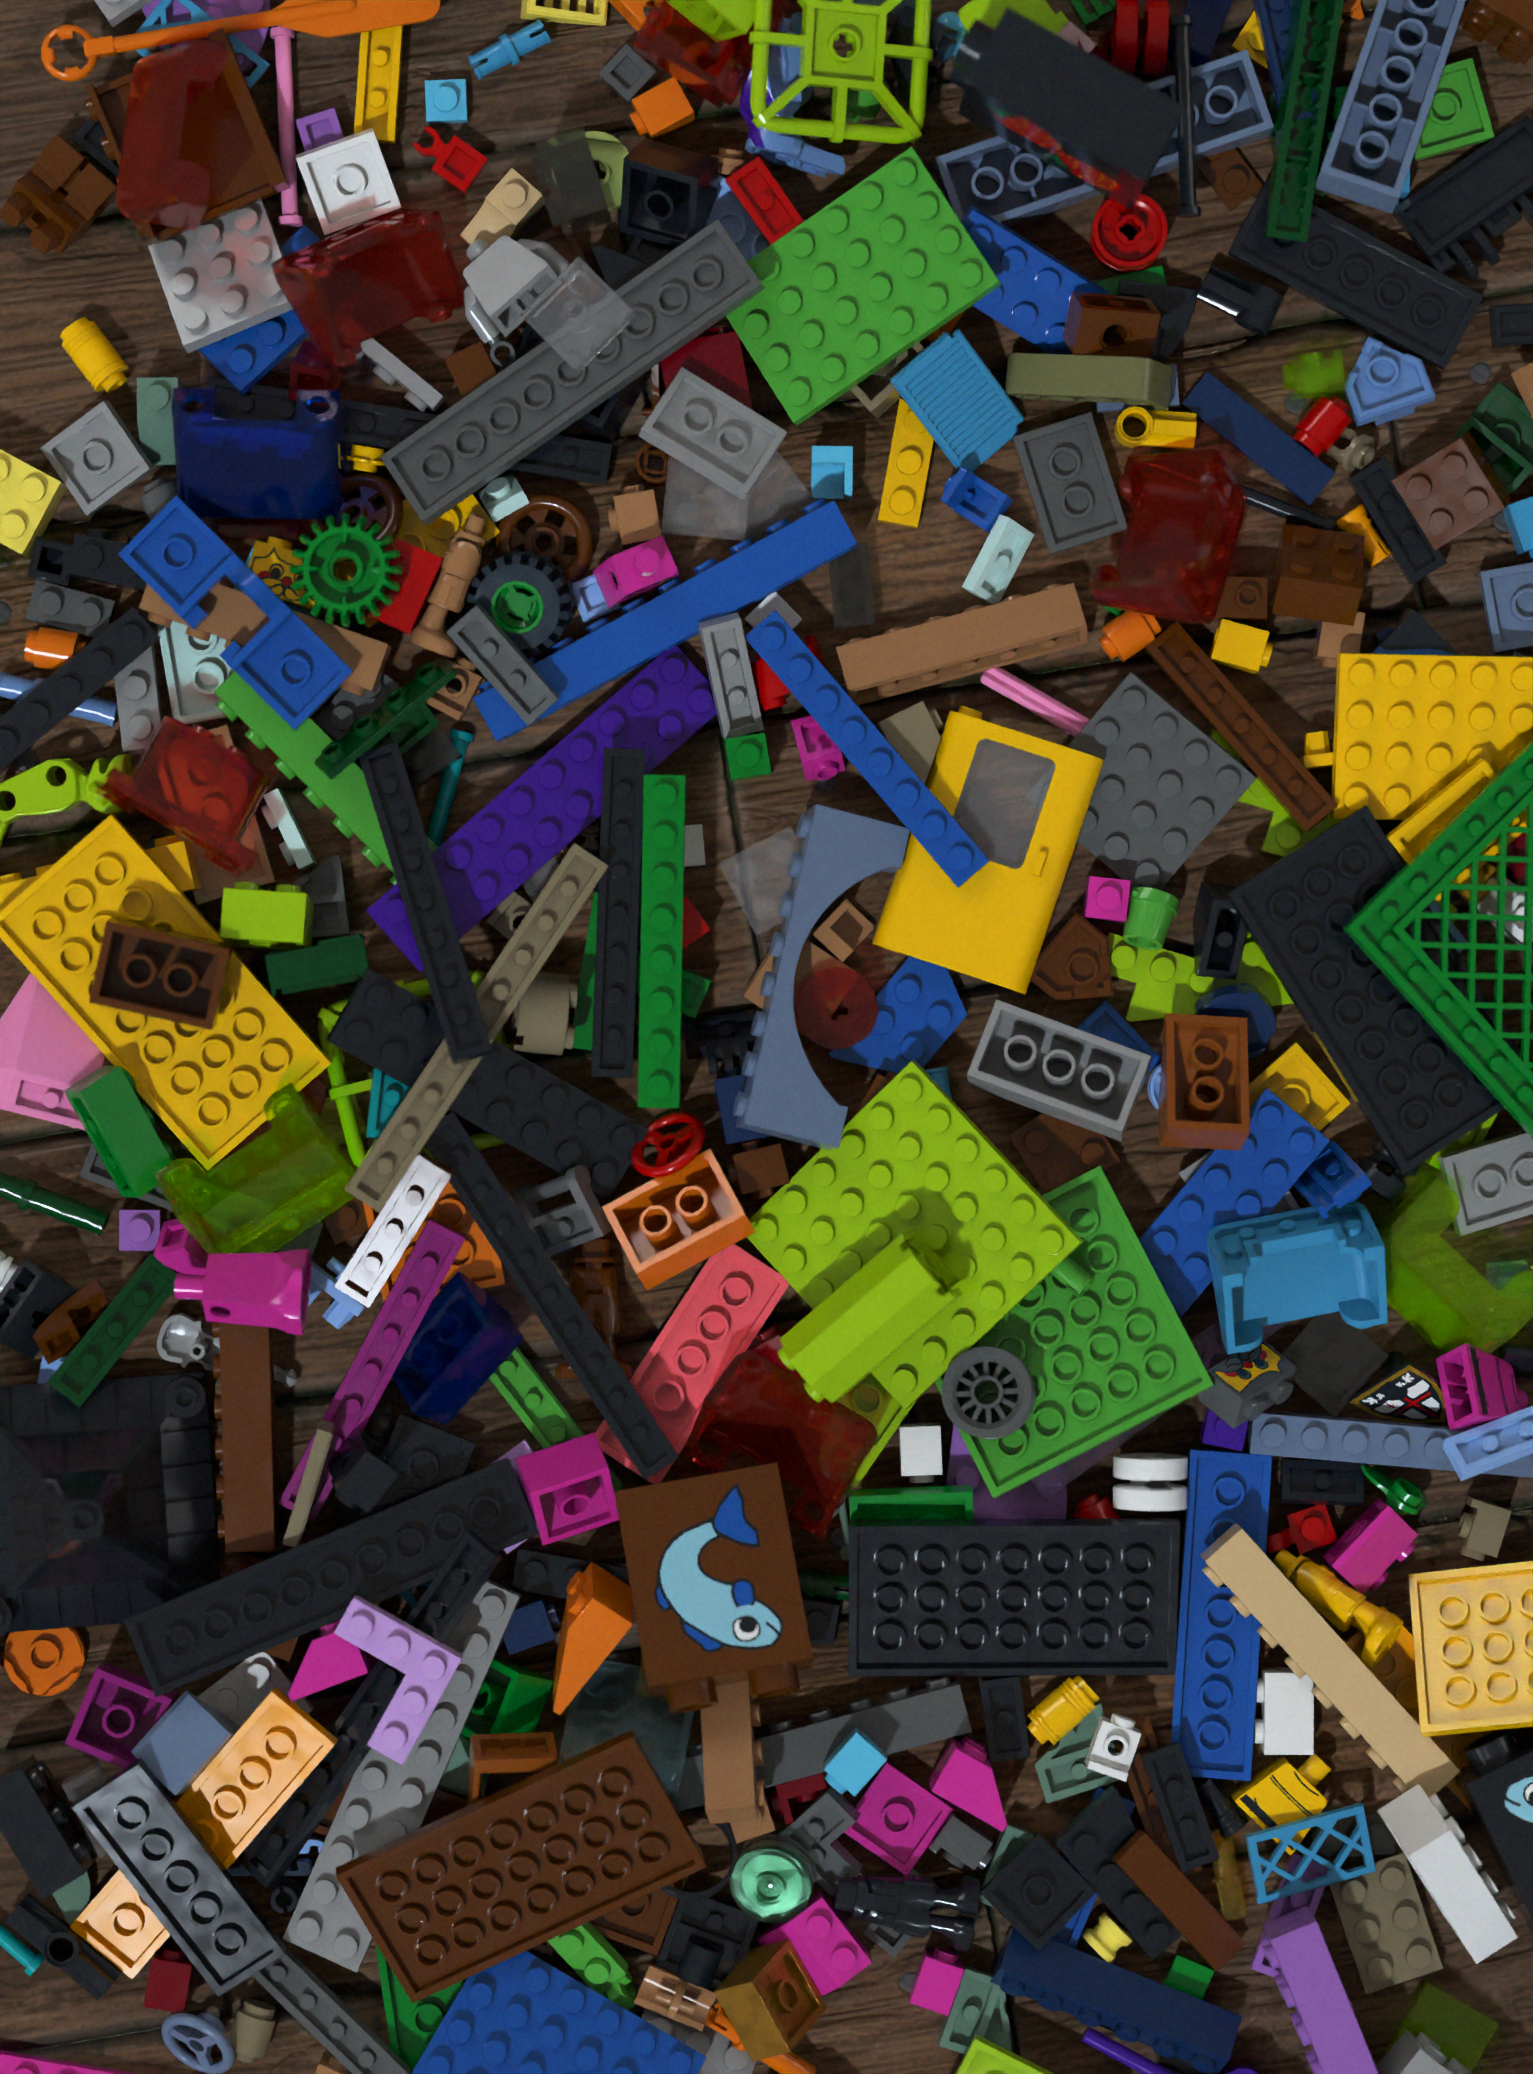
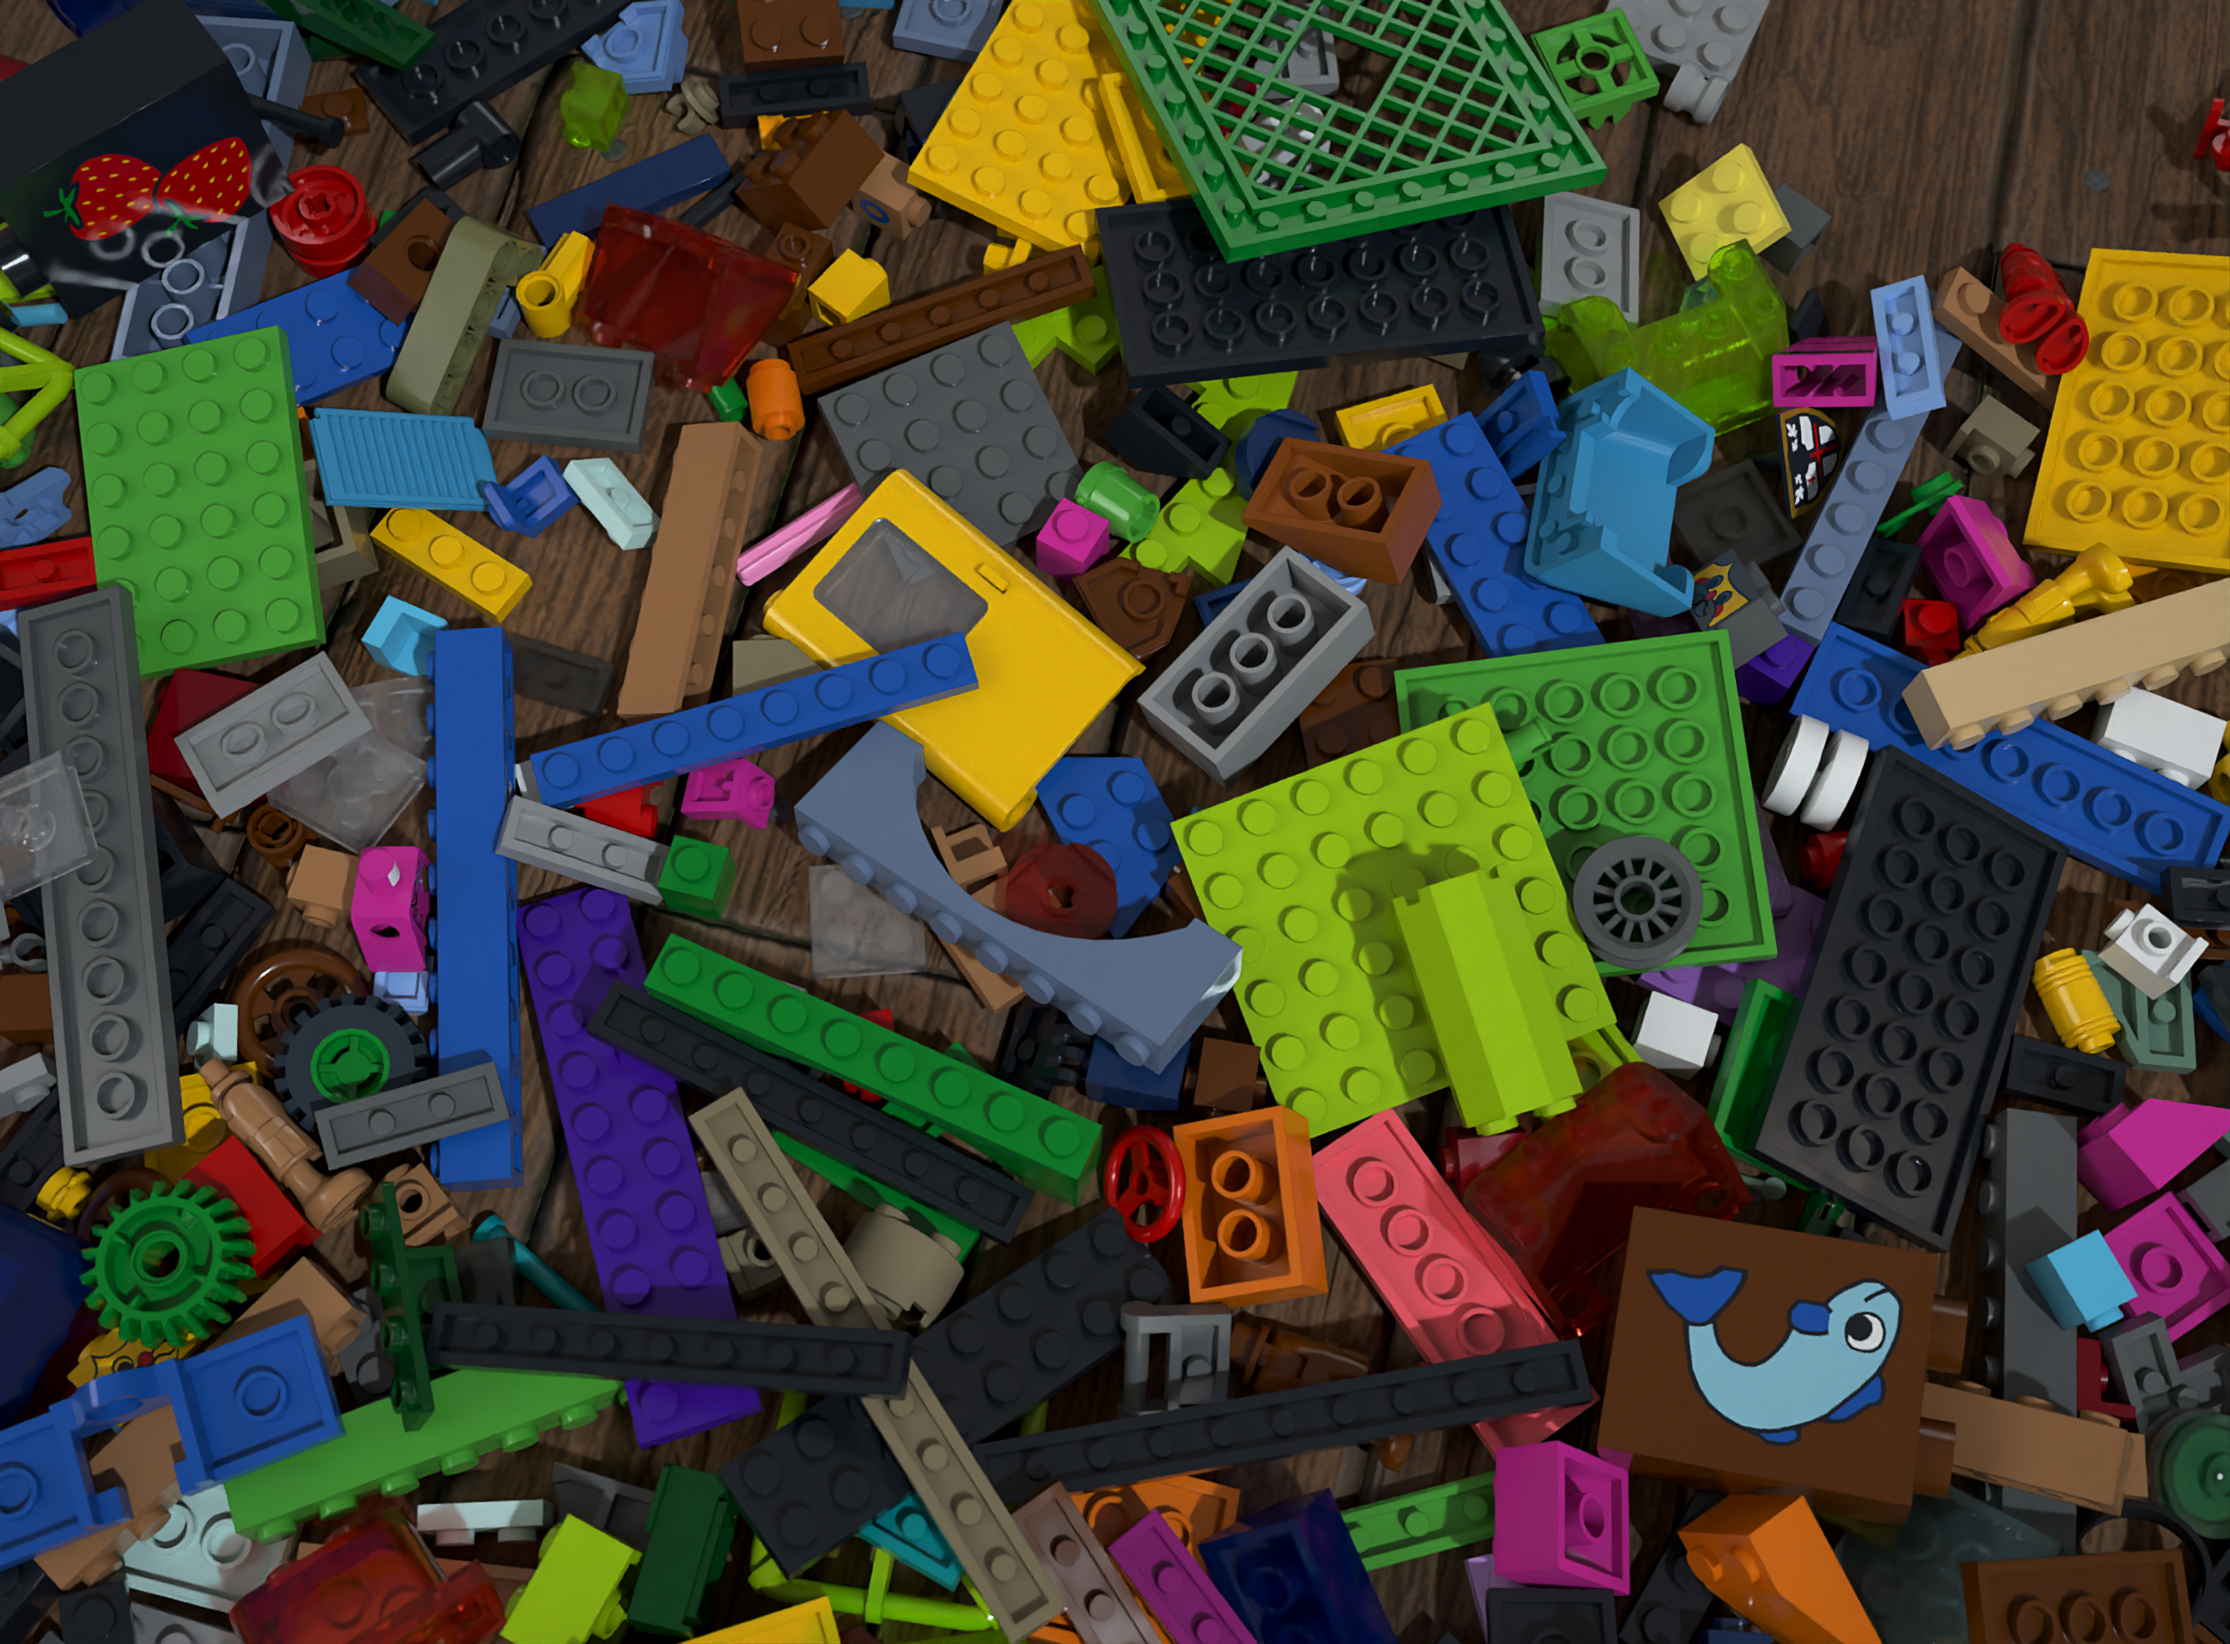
camera: 70 degrees left, 20 degrees down
(1322, 425) = (649, 120): red brick -> none

